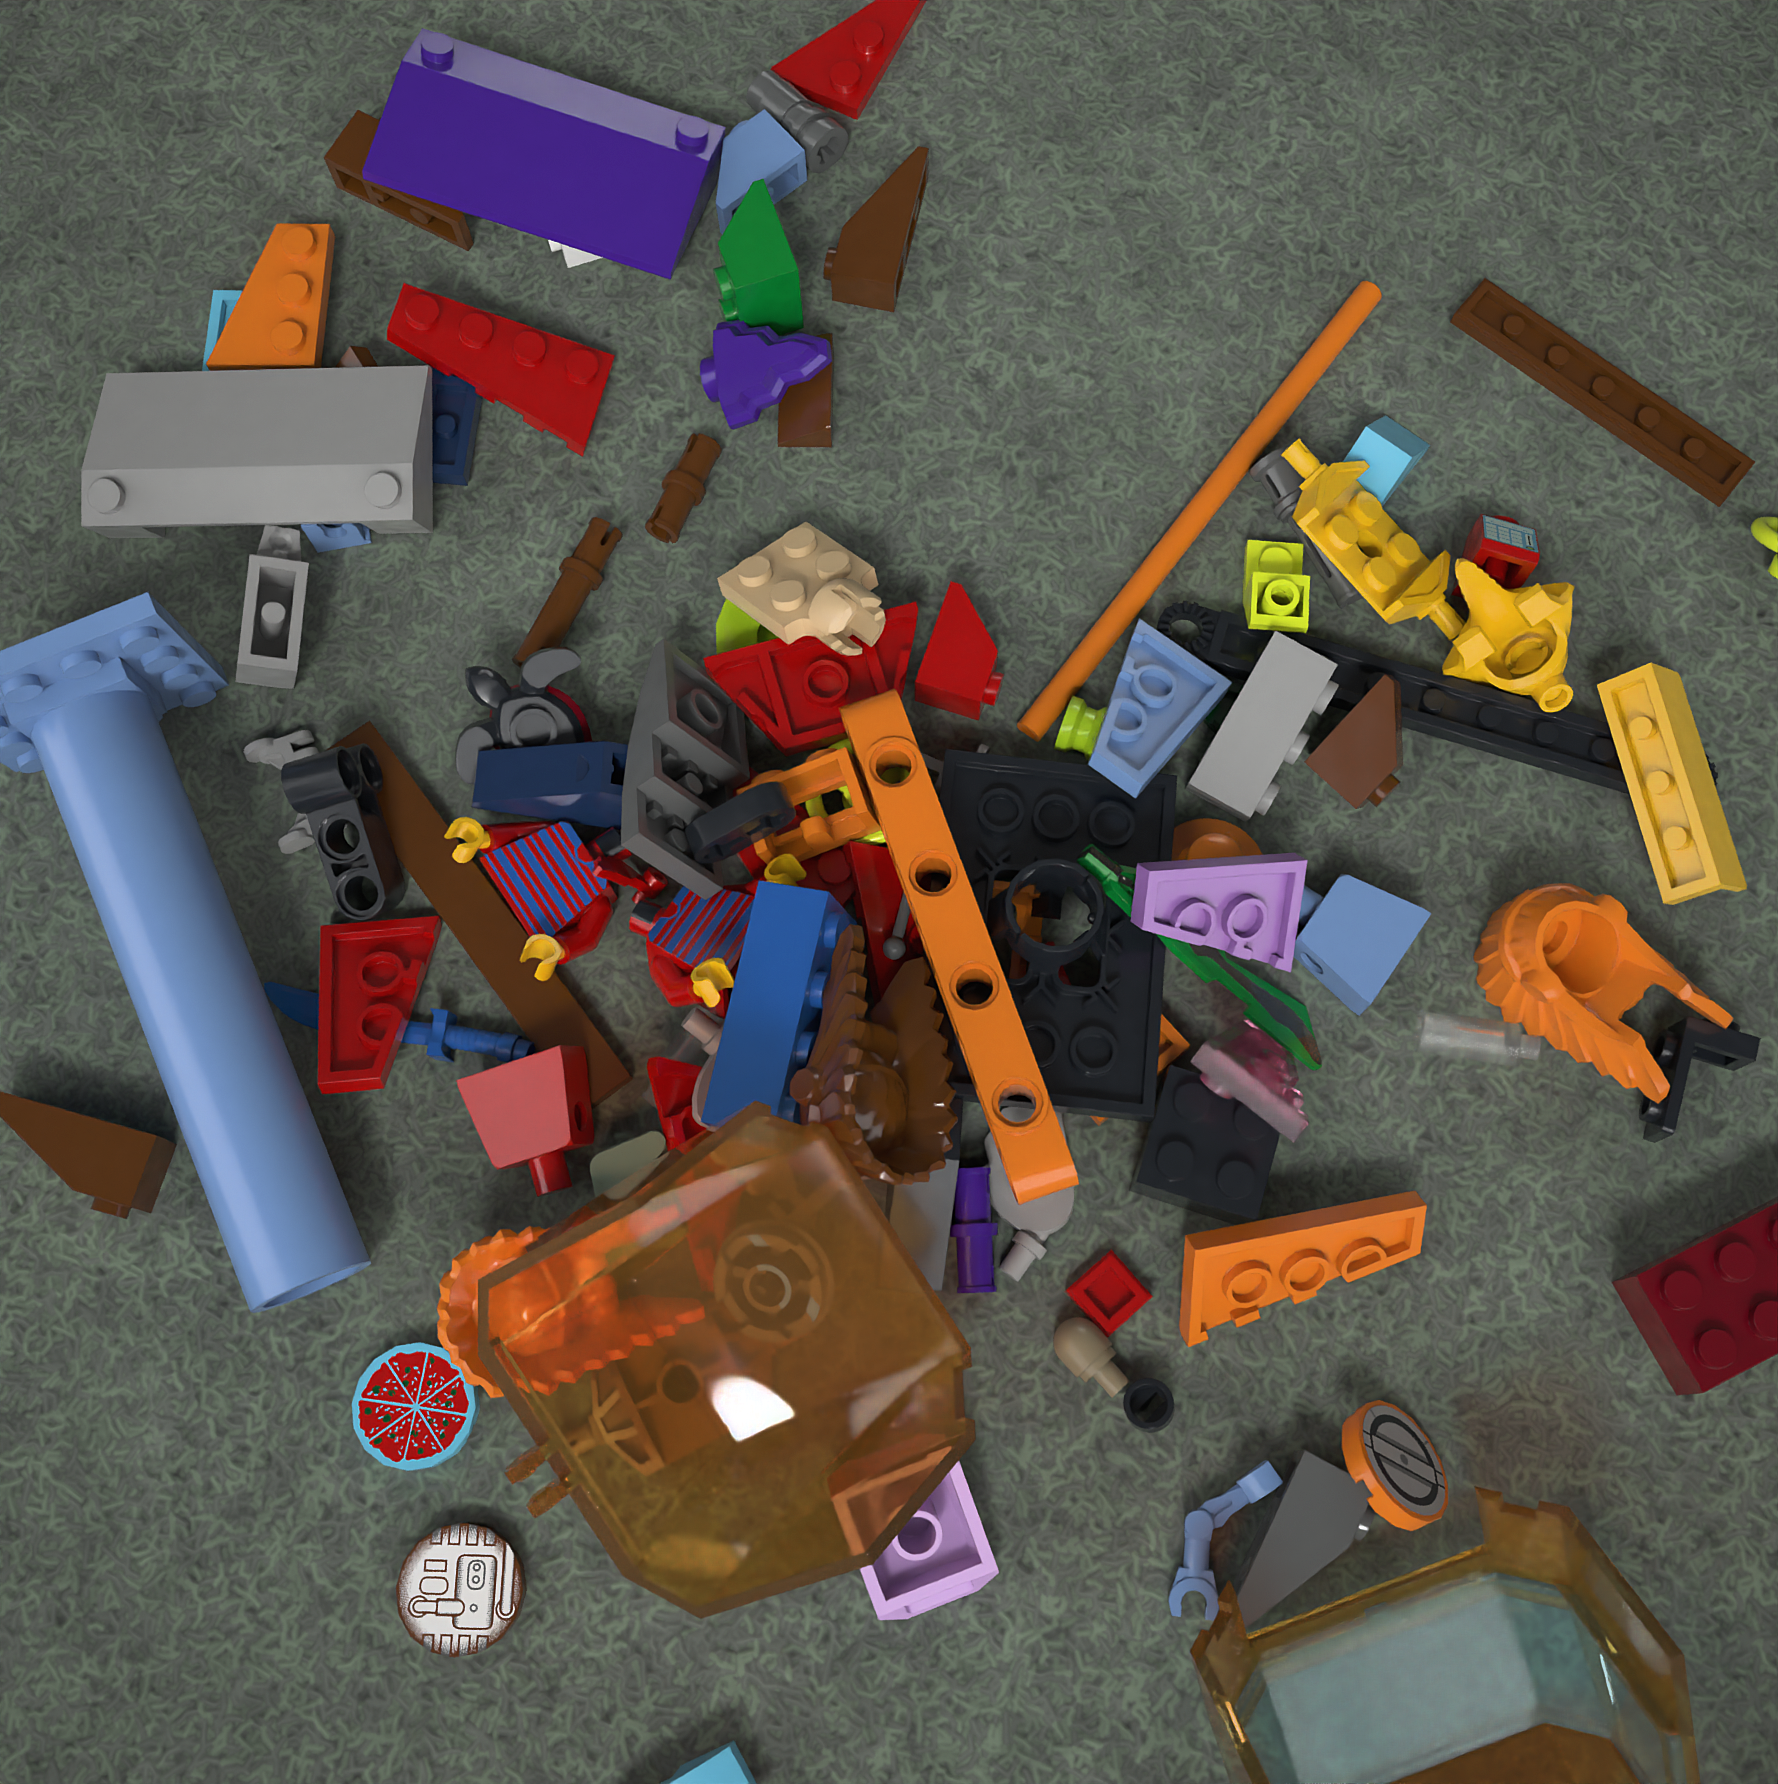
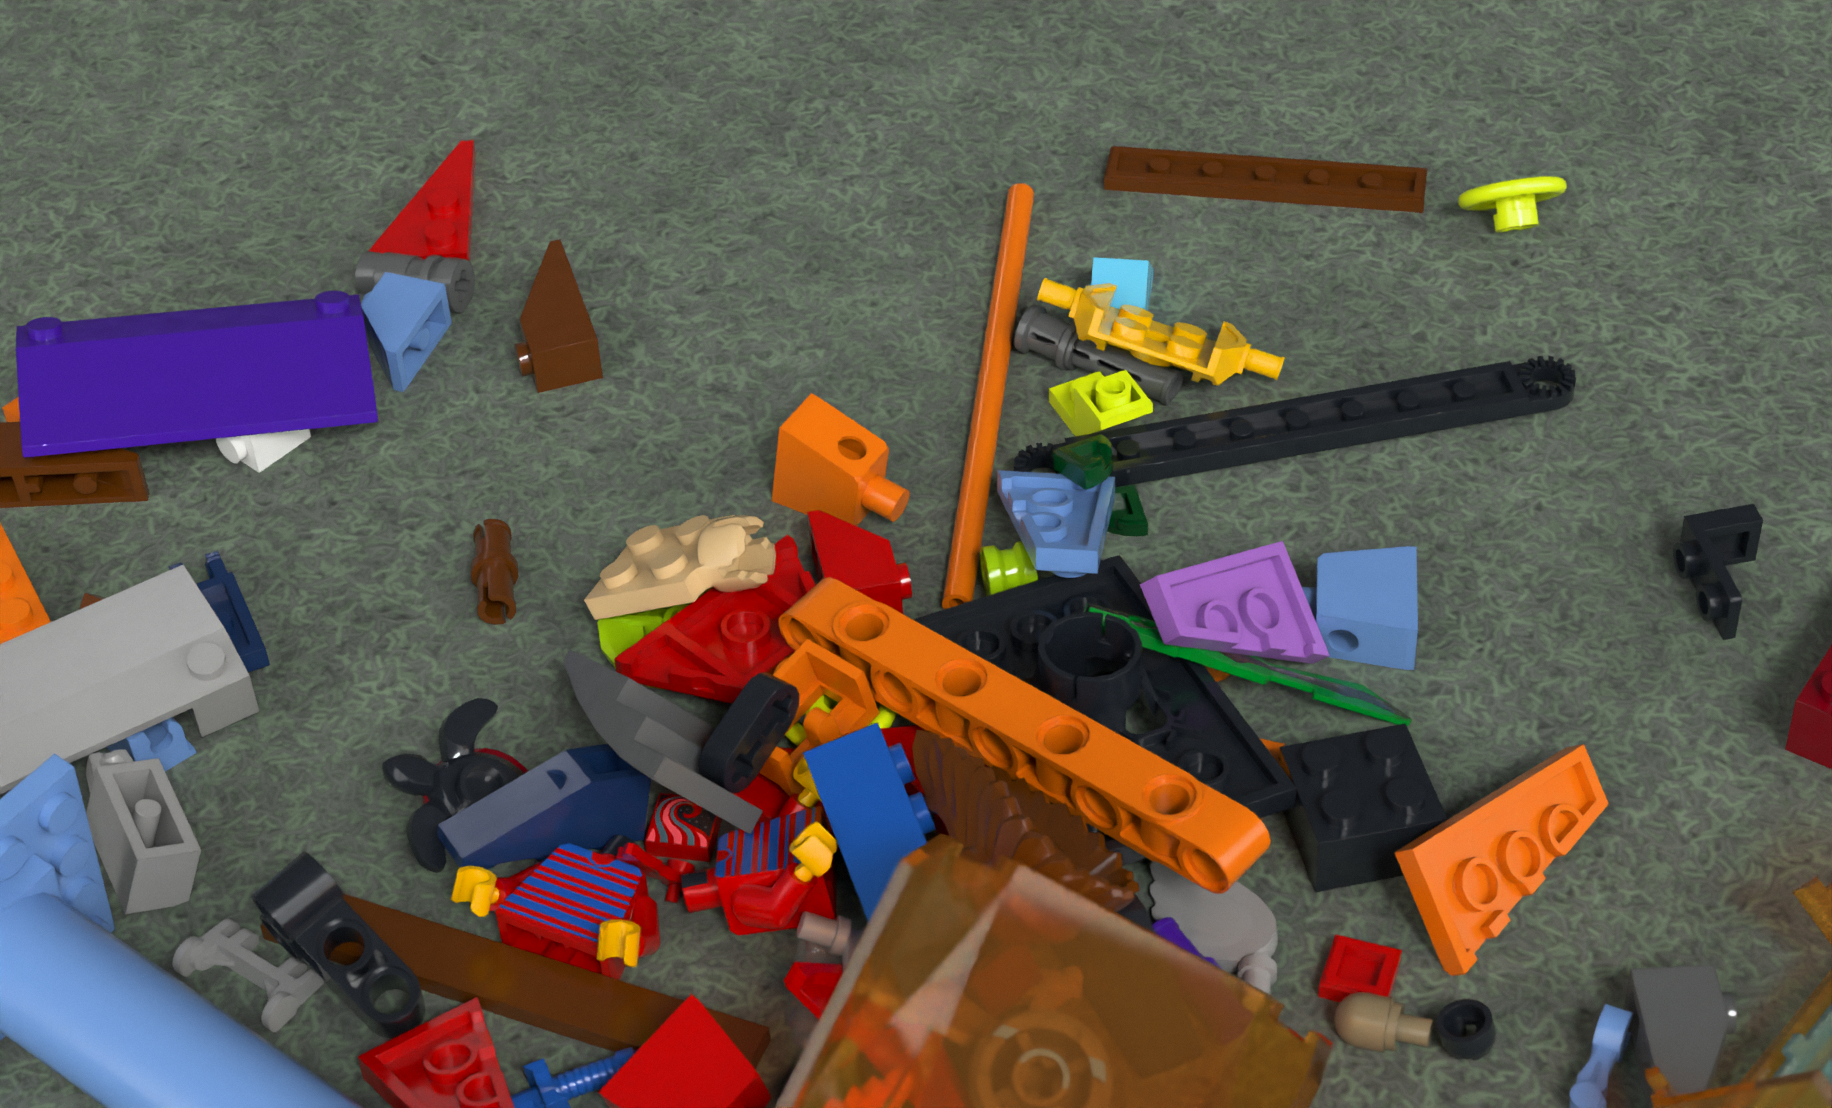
camera: 30 degrees left, 30 degrees down
(527, 369) = (250, 545): red wing -> none
(578, 578) = (436, 681): reddish brown pin -> none
(757, 367) = (510, 449): dark purple rock -> none
(758, 268) = (468, 378): green slope -> none
(807, 409) = (565, 458): reddish brown slope -> none
(997, 524) = (833, 466): none -> orange torso
(1215, 656) = (1085, 461): none -> dark green tile
(1257, 1073) = (1361, 697): clear pink wing -> none
(1264, 728) = (1168, 488): light grey brick -> none
(1365, 748) = (1266, 469): reddish brown slope -> none
(1396, 1465) = (1716, 947): tile -> none
(1473, 1038) = (1523, 631): clear cylinder -> none
(1501, 550) = (1274, 305): red slope -> none
(1513, 637) = (1330, 339): yellow piece -> none
(1572, 970) = (1565, 537): orange piece -> none
(1670, 784) = (1534, 379): yellow panel -> none

